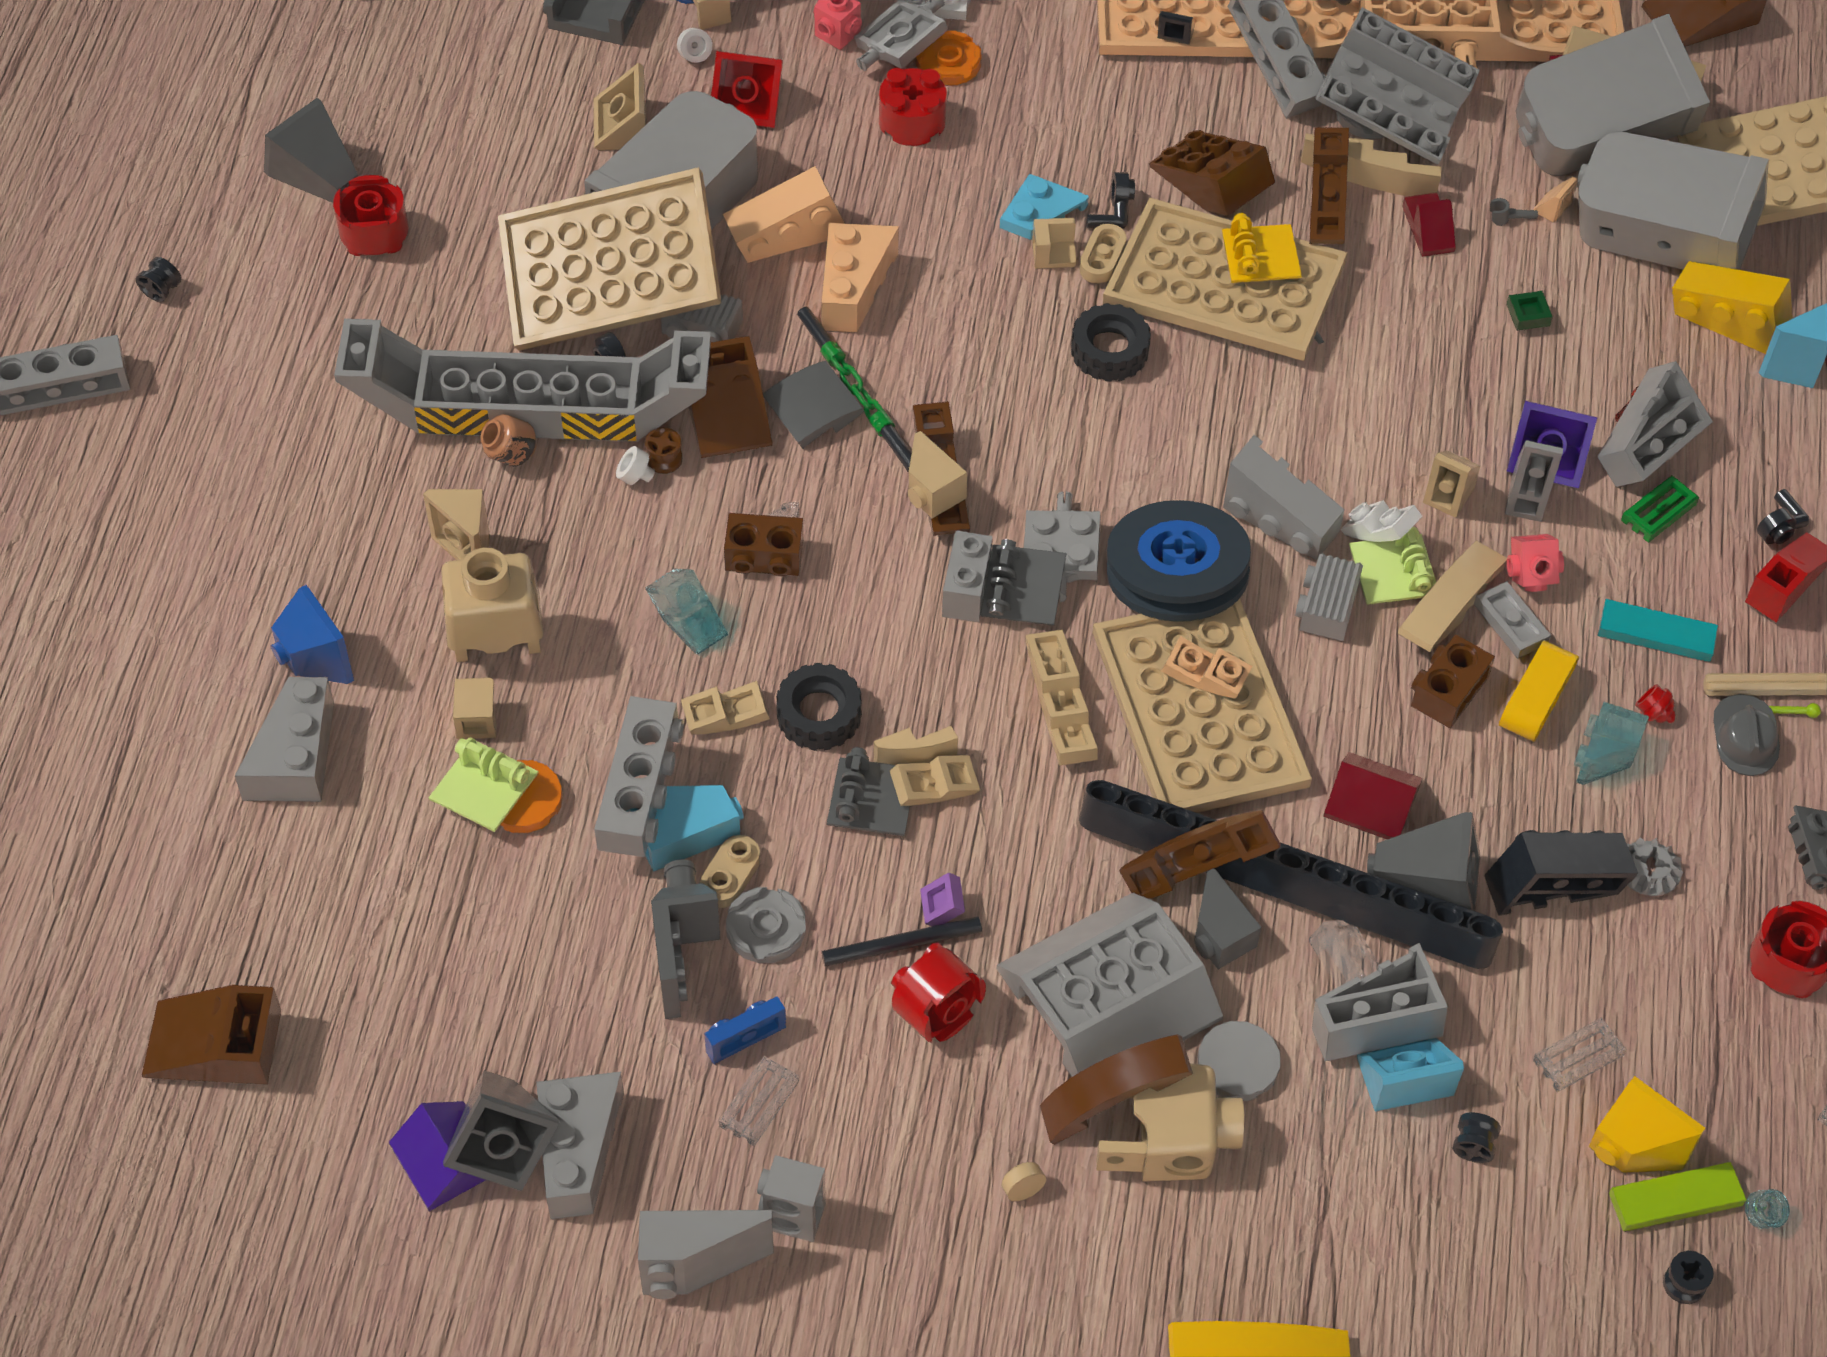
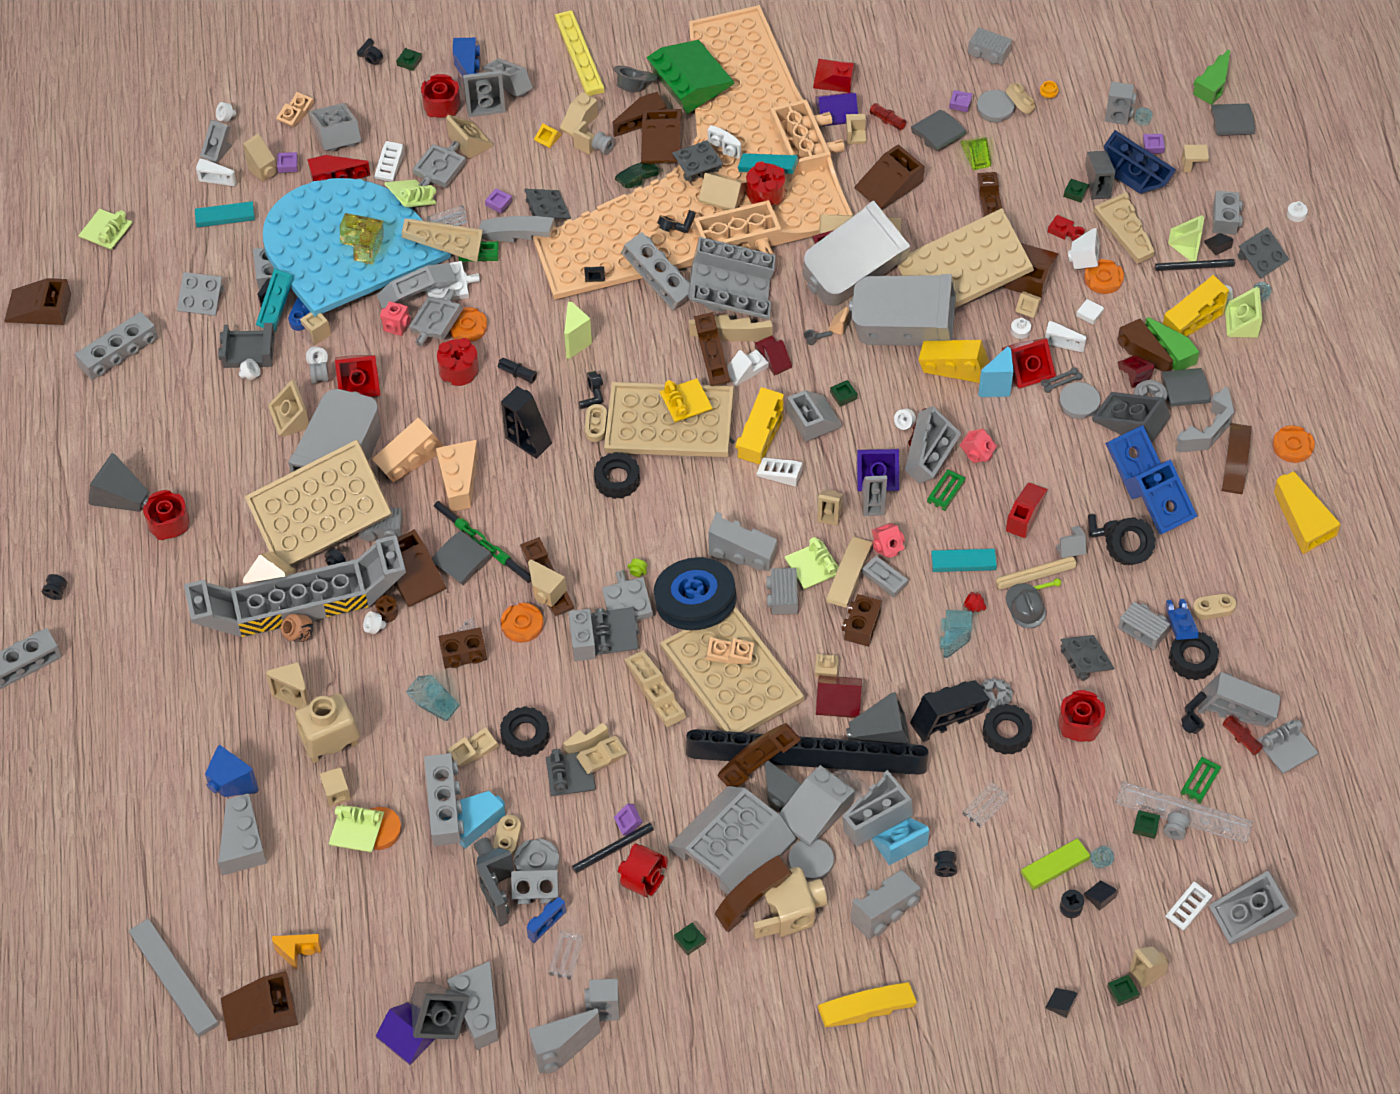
camera: 15 degrees left, 0 degrees up
(96, 946) = (173, 978): none -> light grey tile
(308, 948) = (291, 945): none -> light orange slope
(492, 332) = (268, 567): none -> slope
(584, 38) = (249, 369): none -> white tile
(689, 69) = (319, 372): none -> light grey wheel
(748, 957) = (535, 879): none -> light grey brick
(876, 531) = (522, 622): none -> orange tile
(982, 1136) = (689, 938): none -> dark green plate
(984, 219) = (524, 422): none -> black wedge
(1004, 143) = (517, 370): none -> black axle
(1023, 1181) = (719, 955): tan tile -> none
(1039, 200) = (553, 401): medium azure wing -> none
(1054, 243) = (566, 424): tan panel -> none
(1096, 495) = (637, 567): none -> lime plate
(1116, 105) = (577, 330): none -> yellowish green slope
(1216, 170) = (643, 355): reddish brown slope -> none
(1276, 969) = (817, 805): none -> light grey slope
(1345, 1178) = (885, 905): none -> light grey wedge
(1367, 739) = (826, 665): none -> tan tile
(1374, 325) = (761, 426): none -> yellow wedge
(1378, 230) = (746, 366): none -> white slope
(1379, 522) = (798, 541): white slope -> none
(1392, 419) = (778, 476): none -> white slope
(1465, 329) = (811, 414): none -> light grey slope
(1538, 691) = (910, 612): yellow beam -> none
(1621, 376) = (904, 419): none -> white tile
(1645, 1132) = (1030, 836): yellow slope -> none
(1661, 906) = (1009, 713): none -> black tyre
(1736, 450) = (978, 446): none -> coral brick
(1747, 1276) = (1101, 894): none -> black slope
(1780, 524) = (1013, 481): black plate -> none

